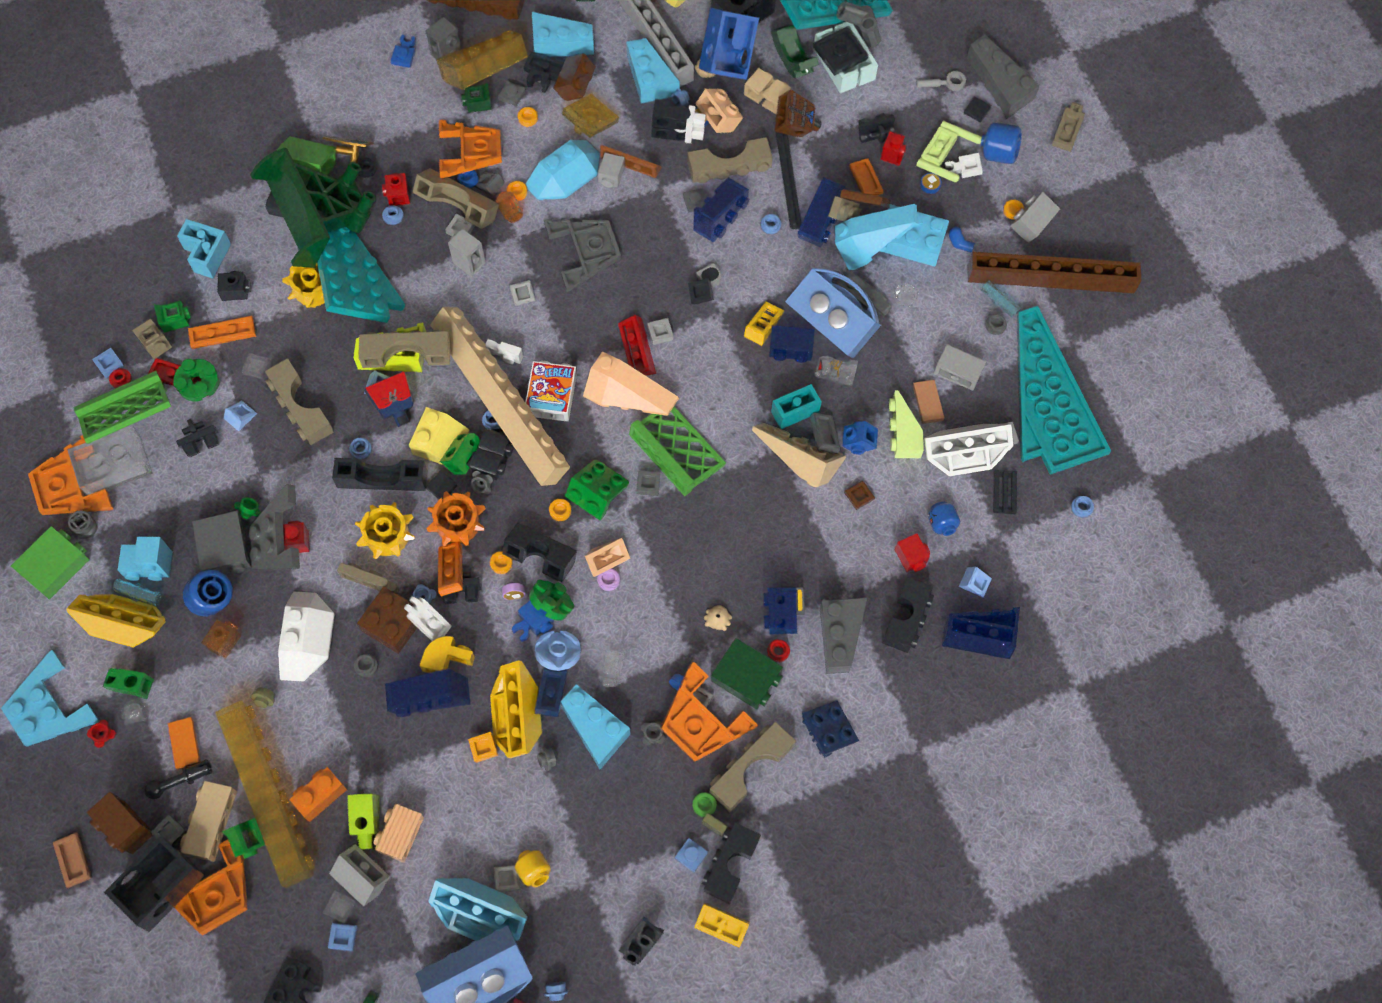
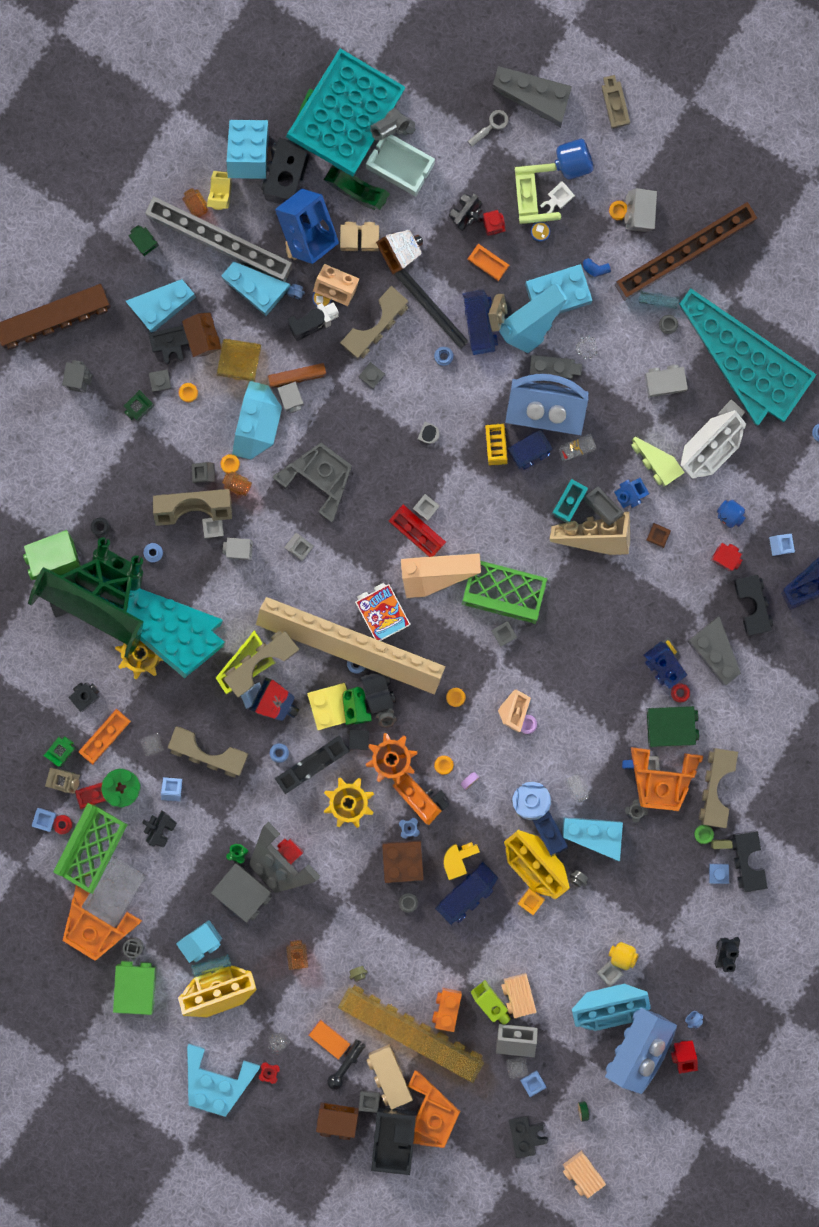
camera: 35 degrees left, 20 degrees up
(72, 860) = (320, 1162): nougat tile -> none
(128, 682) = (259, 1029): green leg -> none
(205, 588) = (263, 933): blue head -> none
(206, 245) = (38, 677): medium azure brick -> none
(245, 838) = (424, 1071): green window -> none
(304, 636) = (351, 911): white wedge -> none
(353, 151) = (74, 518): pearl gold shield -> none
(370, 579) = (365, 842): dark tan hinge -> none
(396, 189) = (139, 530): red brick -> none
(404, 54) = (47, 405): blue plate -> none
(427, 618) = (430, 845): white hinge -> none
(468, 179) = (185, 480): blue tile -> none
(478, 148) = (176, 451): orange wing -> none
(482, 59) = (118, 372): clear yellow wedge -> none
(506, 351) = (330, 606): white plate -> none
(526, 542) = (482, 734): black arch -> none
(532, 620) = (499, 789): blue brick -> none
(551, 599) = (499, 761): green plate -> none
(595, 488) = (470, 663): green bracket -> none
(701, 291) = (433, 453): black plate -> none
(718, 623) = (621, 692): tan animal -> none
(720, 210) = (400, 372): clear blue wedge -> none
(722, 925) = (771, 905): yellow hinge -> none
(829, 728) = (752, 723): dark blue hinge -> none
(840, 51) = (398, 168): black tile -> none
(865, 198) = (510, 296): reddish brown tile -> none
(928, 401) = (659, 424): nougat tile -> none
(977, 109) = (533, 135): black tile -> none
(1005, 475) = (766, 455): black tile -> none

